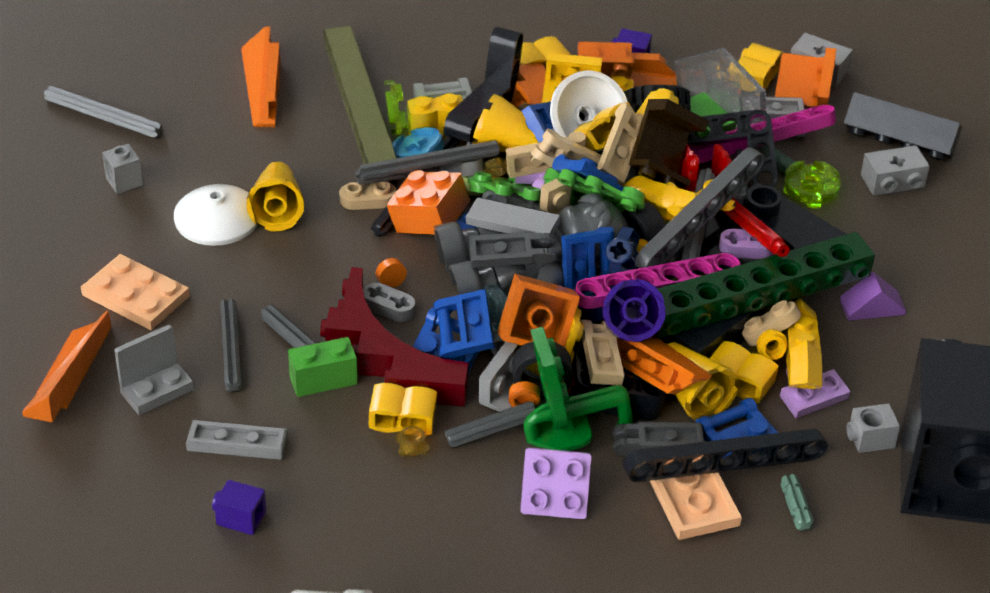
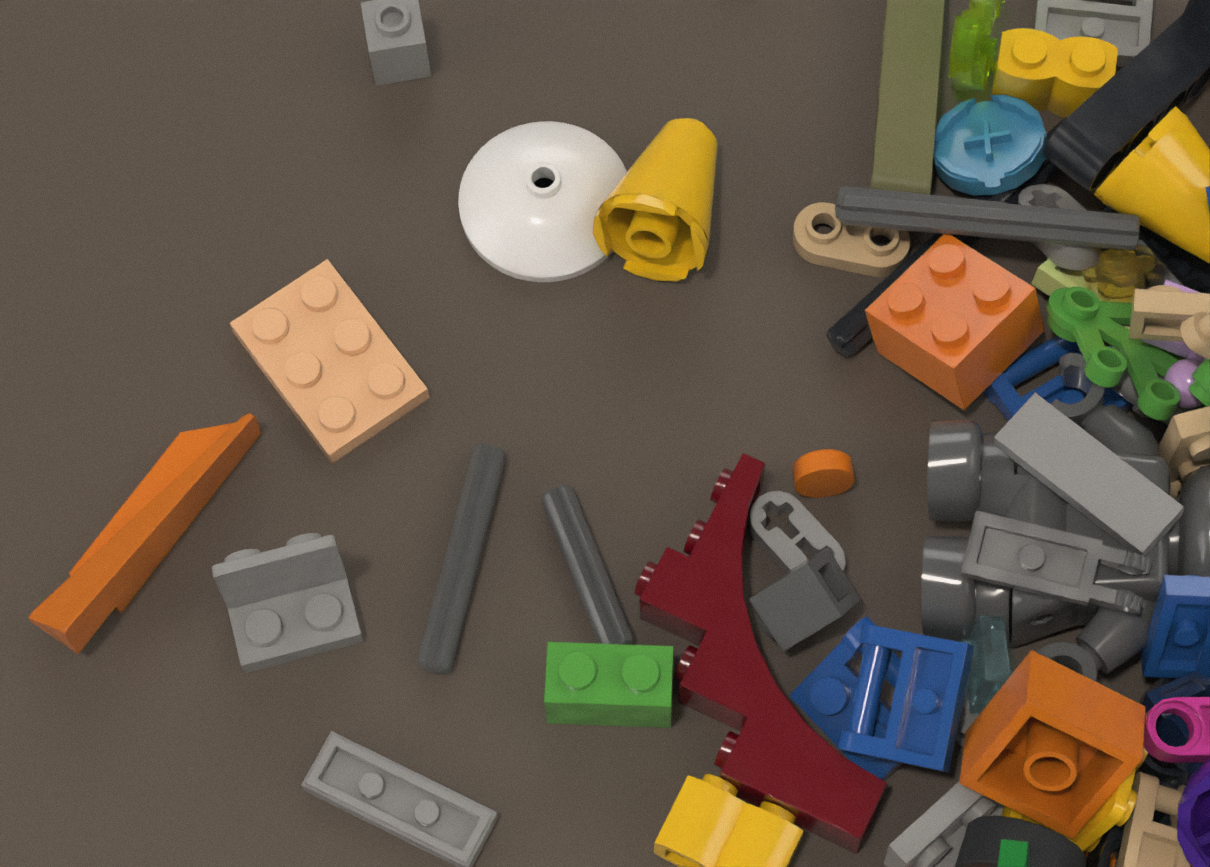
camera: 25 degrees right, 25 degrees up
(401, 312) = (804, 600): none -> dark grey brick

